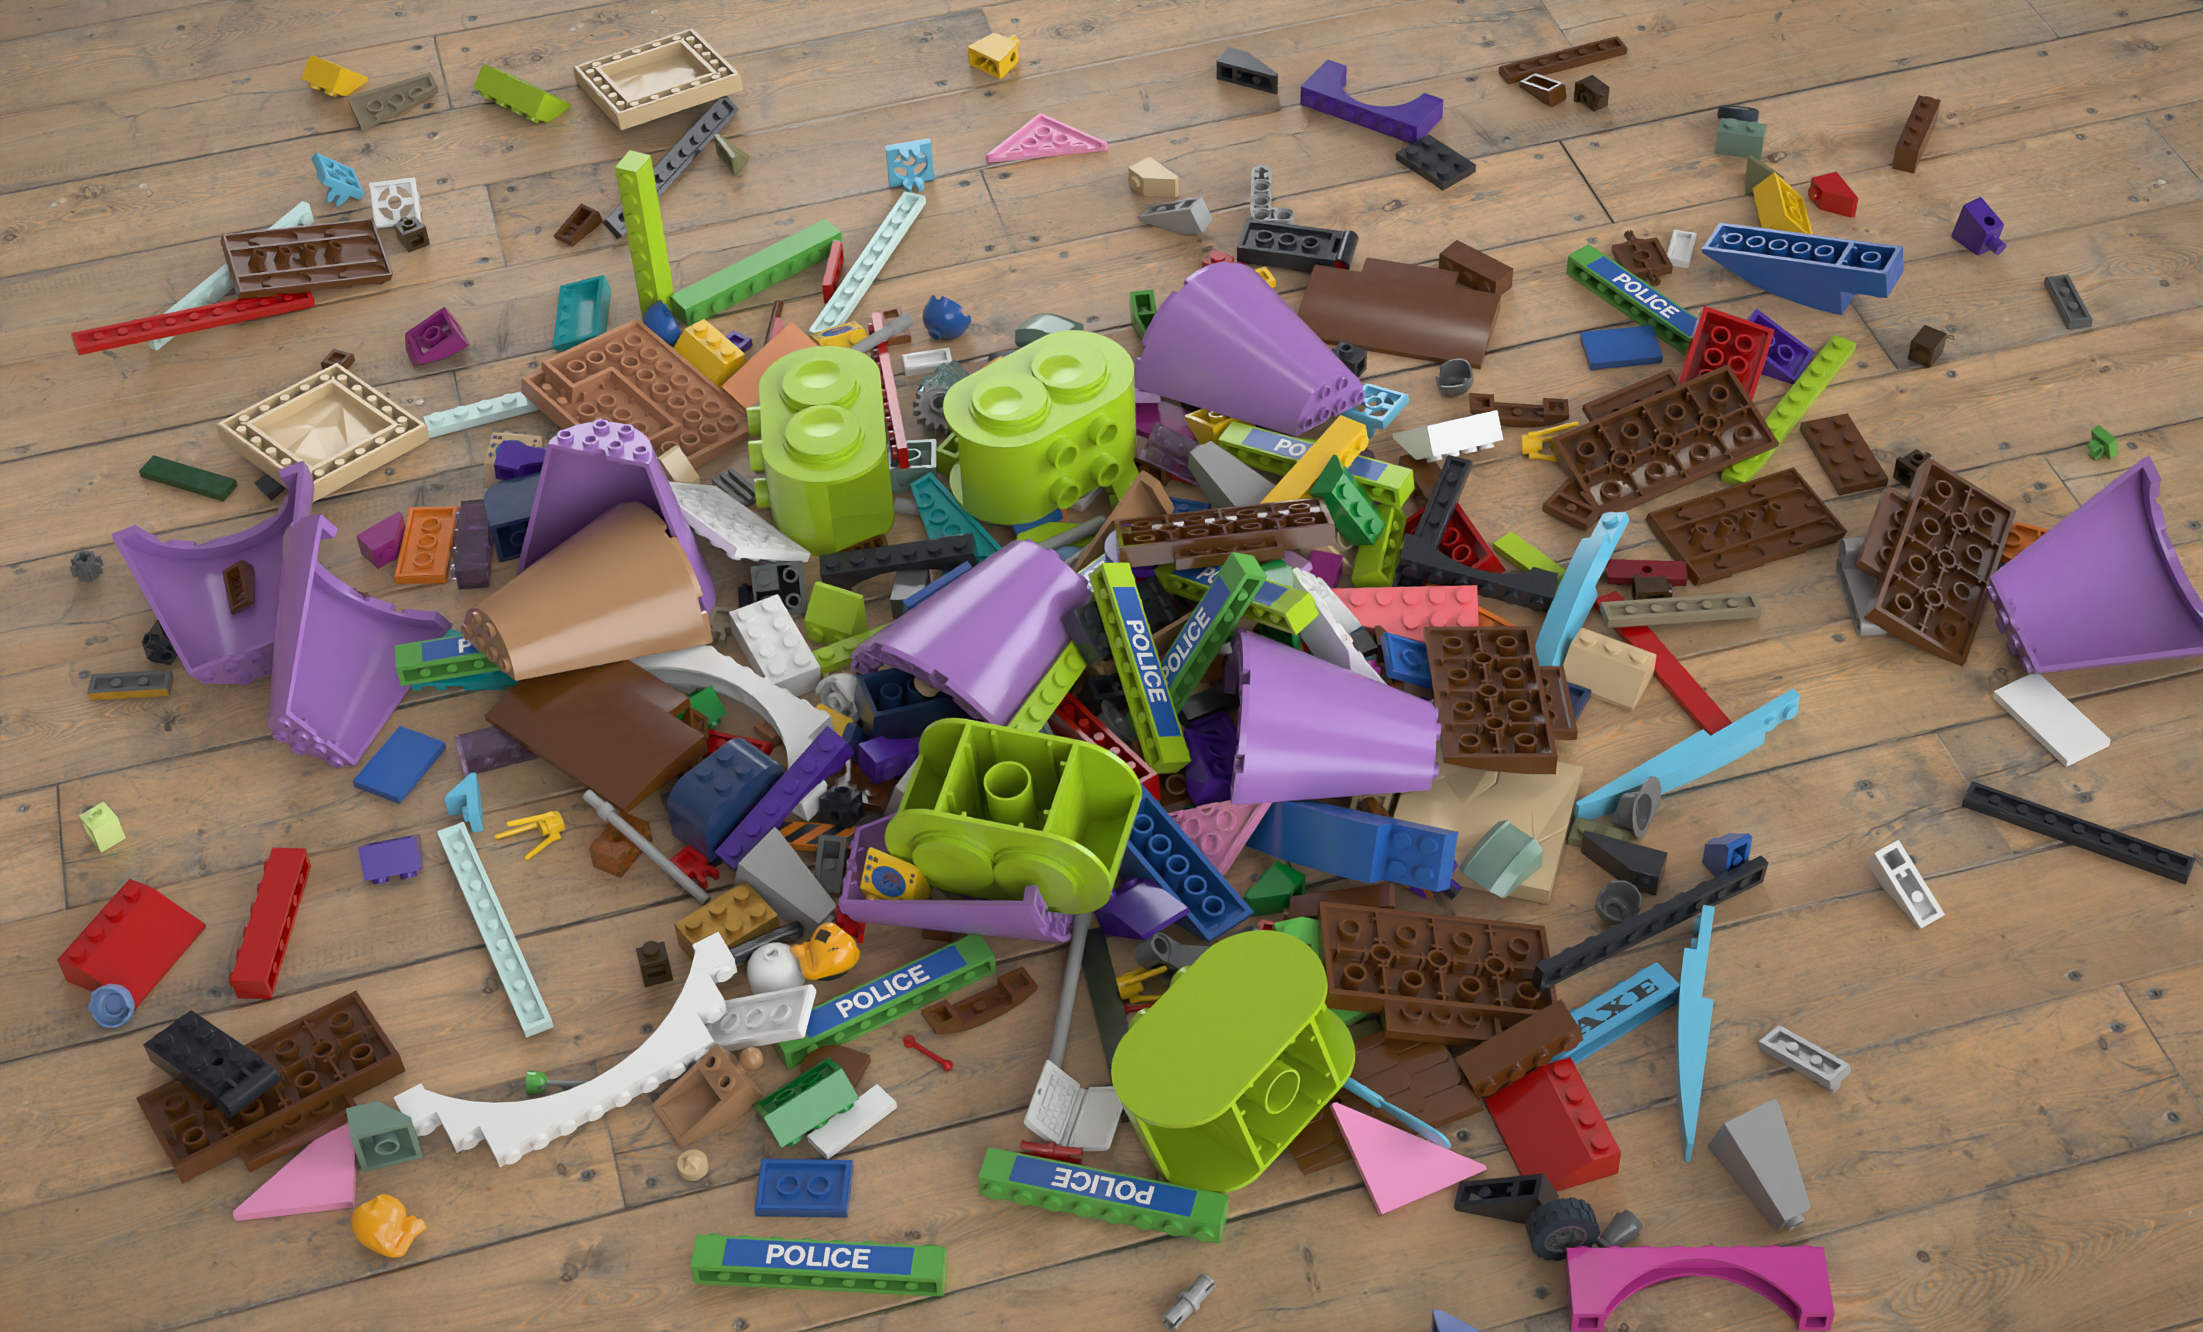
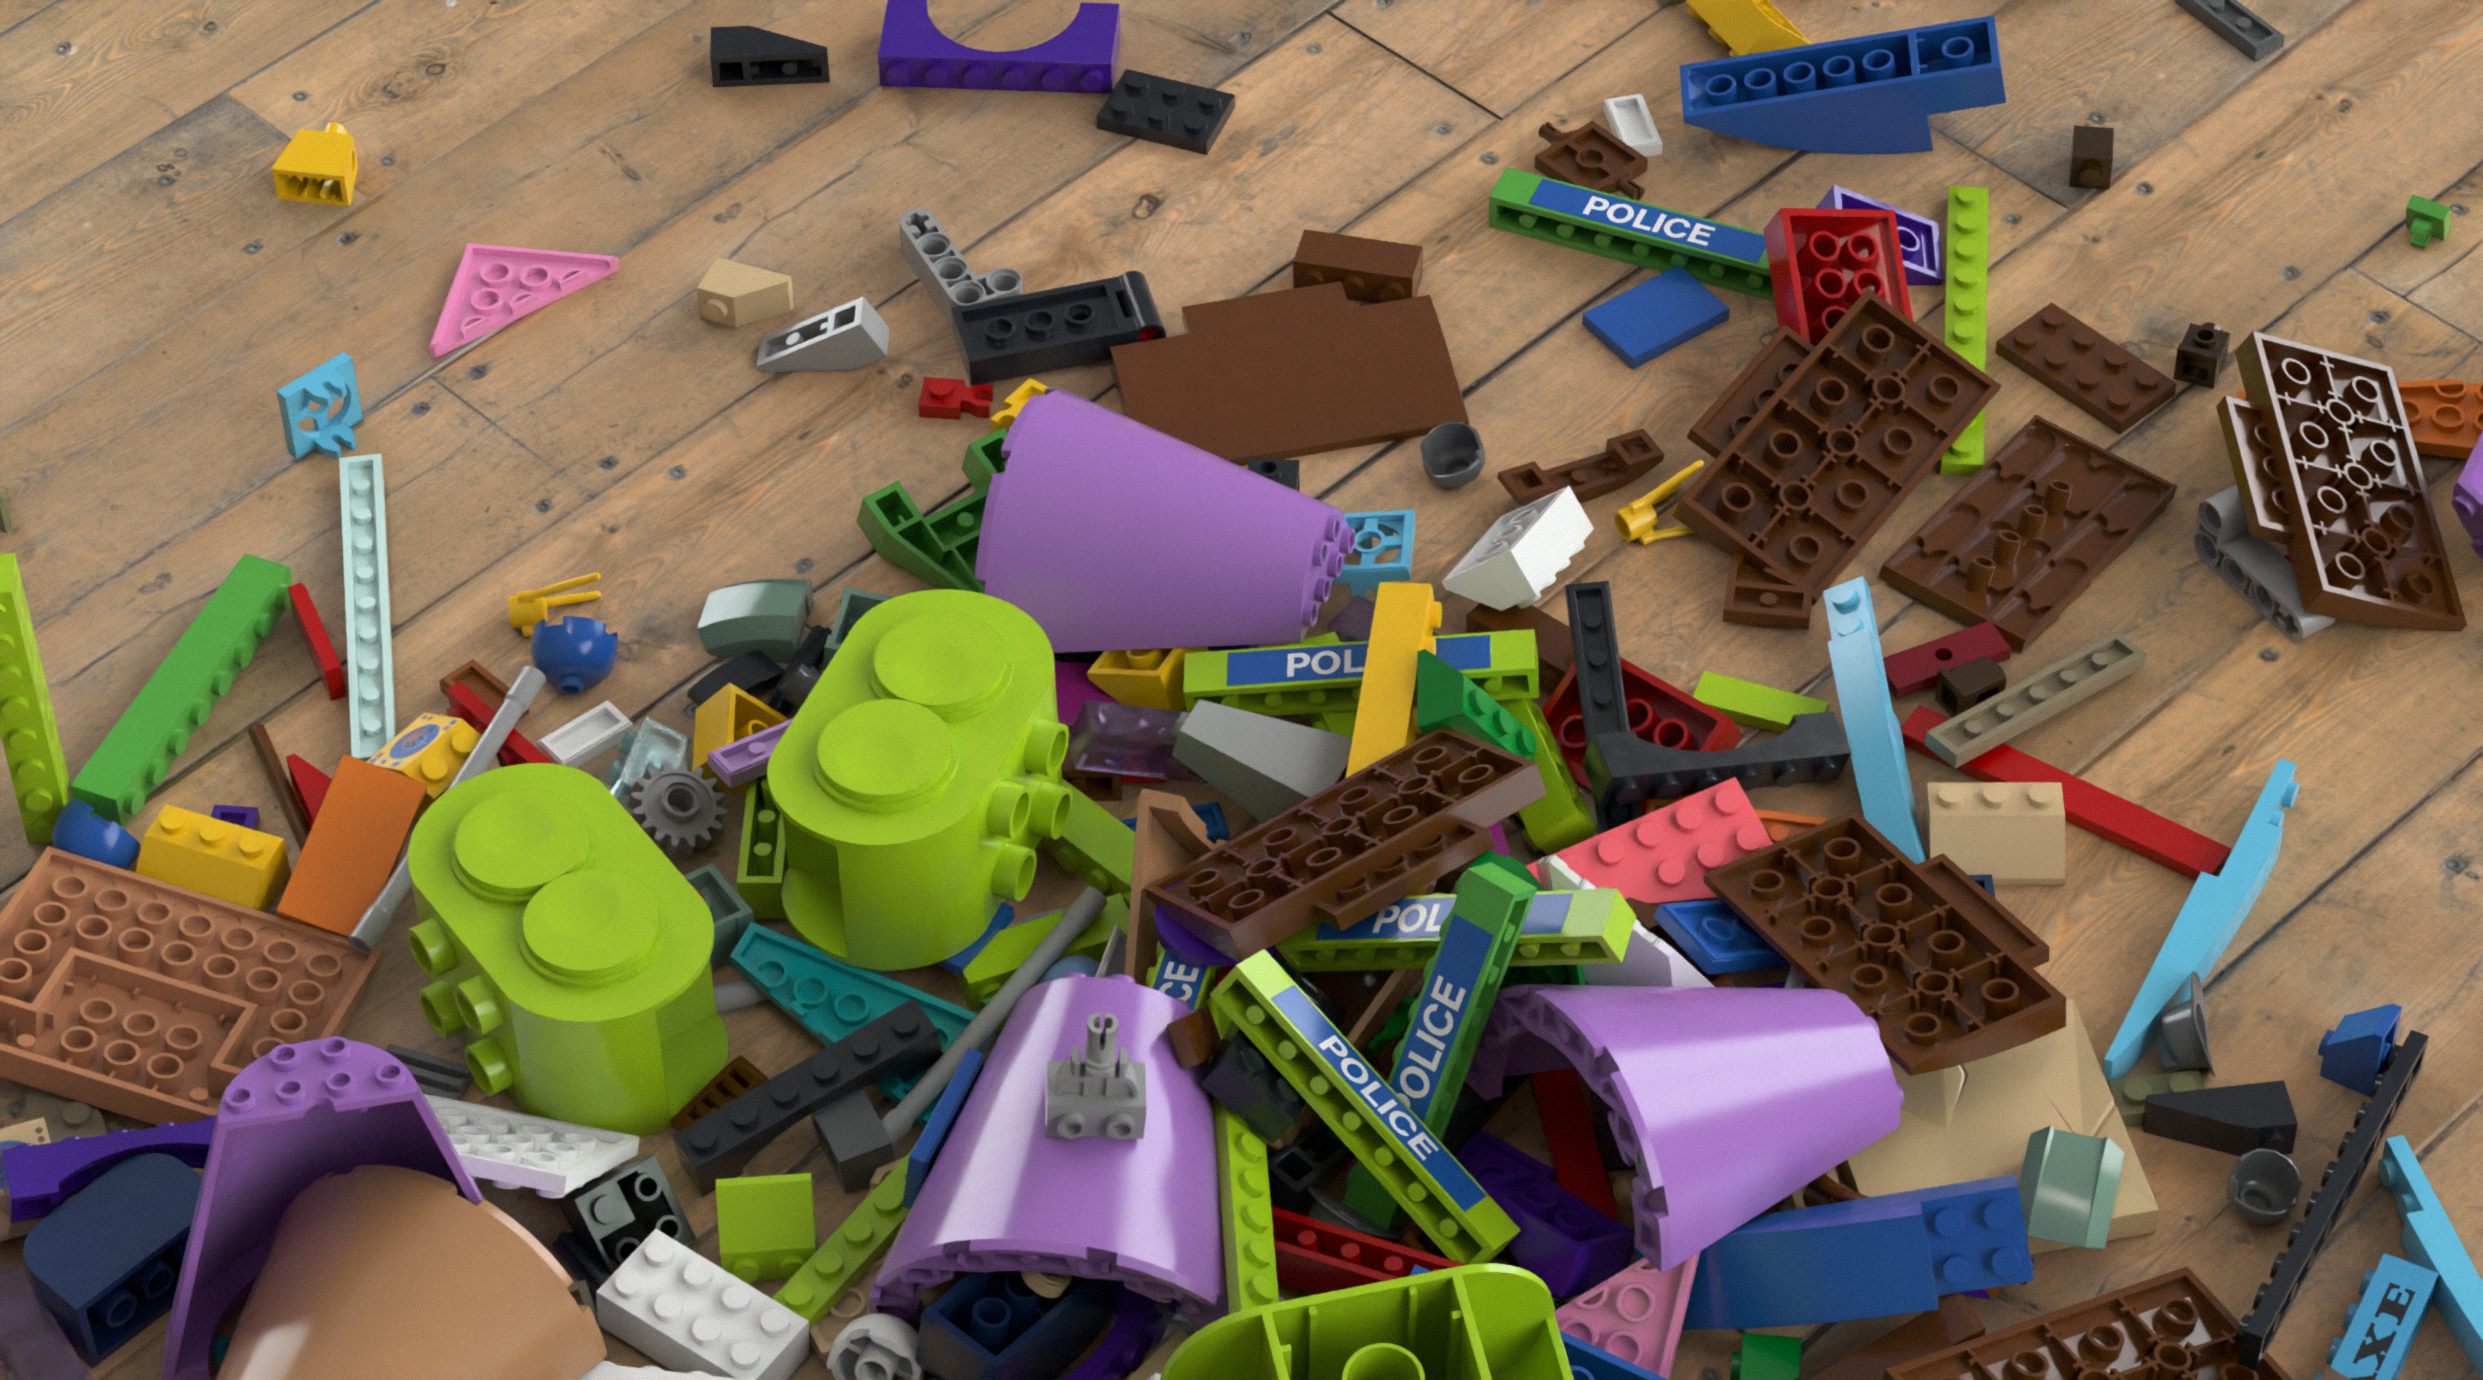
camera: 30 degrees left, 0 degrees up
(943, 288) = (531, 606): none -> yellow plant
(985, 594) = (1096, 1092): none -> light grey brick
(1073, 594) = (1194, 1036): none -> reddish brown tile

